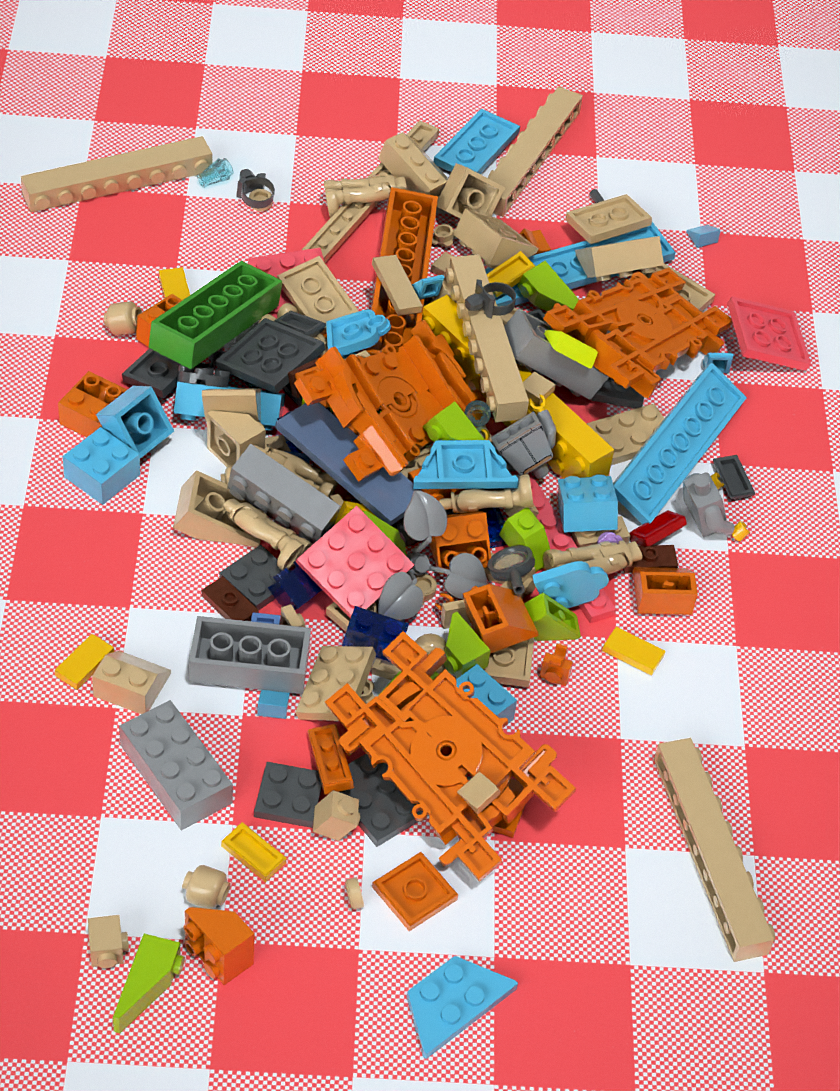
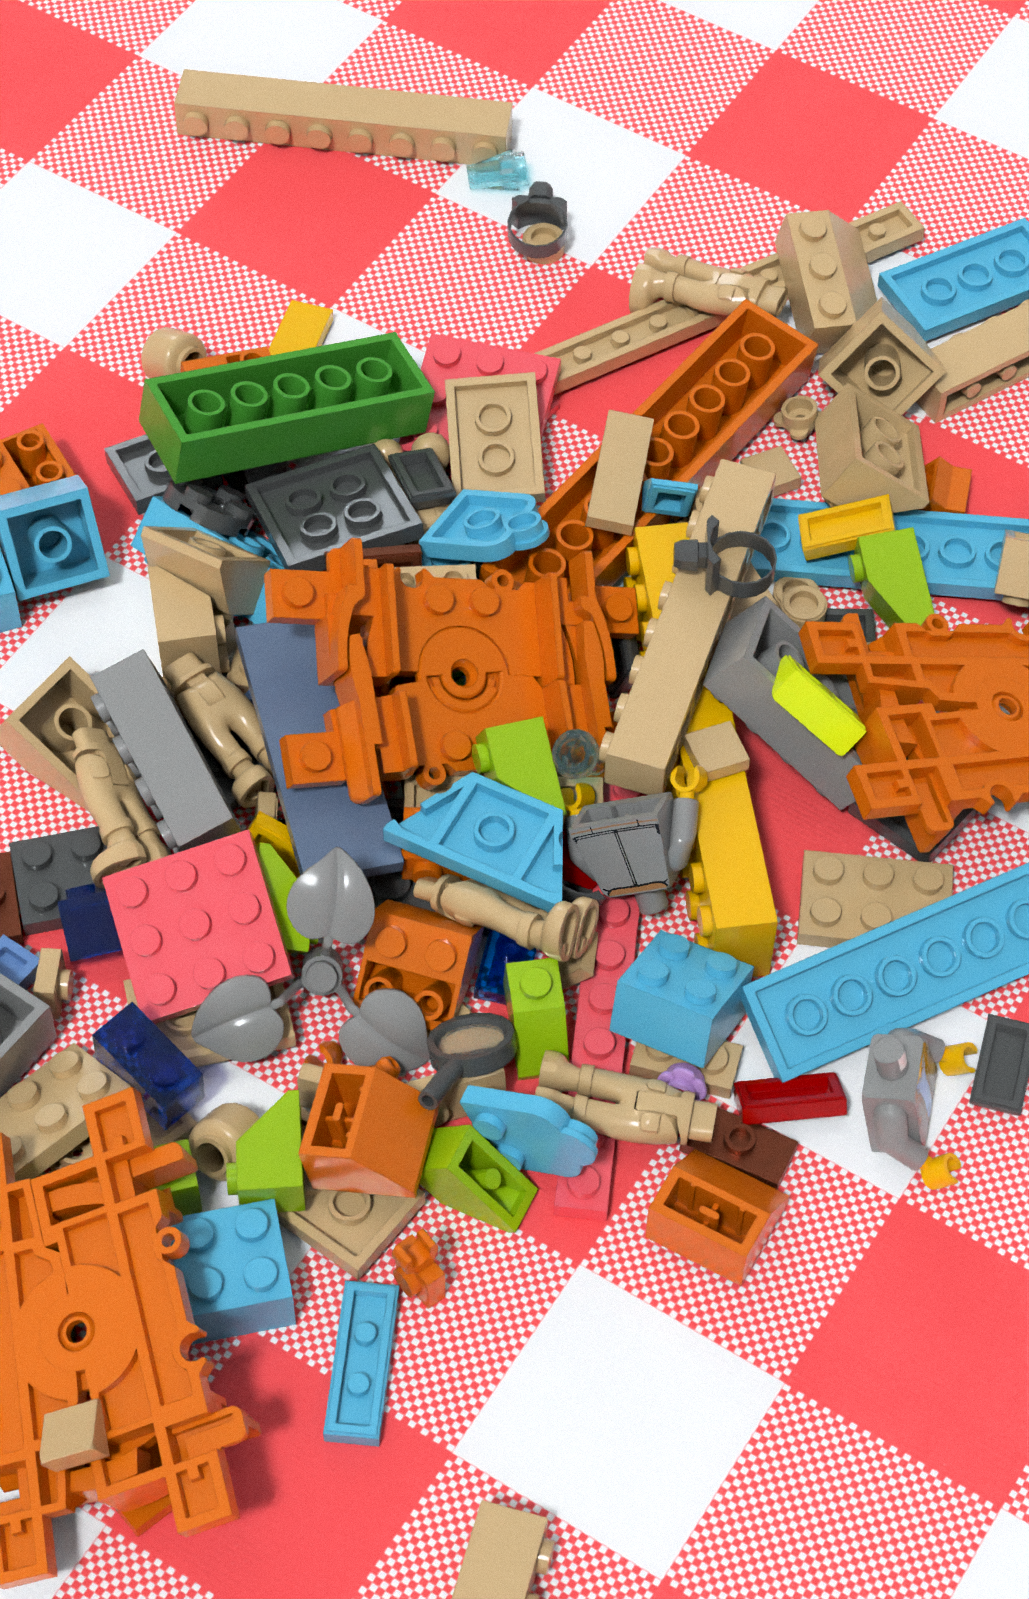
camera: 35 degrees right, 5 degrees up
(427, 585) = (315, 1017): tan tile -> none
(556, 720) = (361, 1363): none -> medium azure tile
(633, 651) = (587, 1303): yellow tile -> none

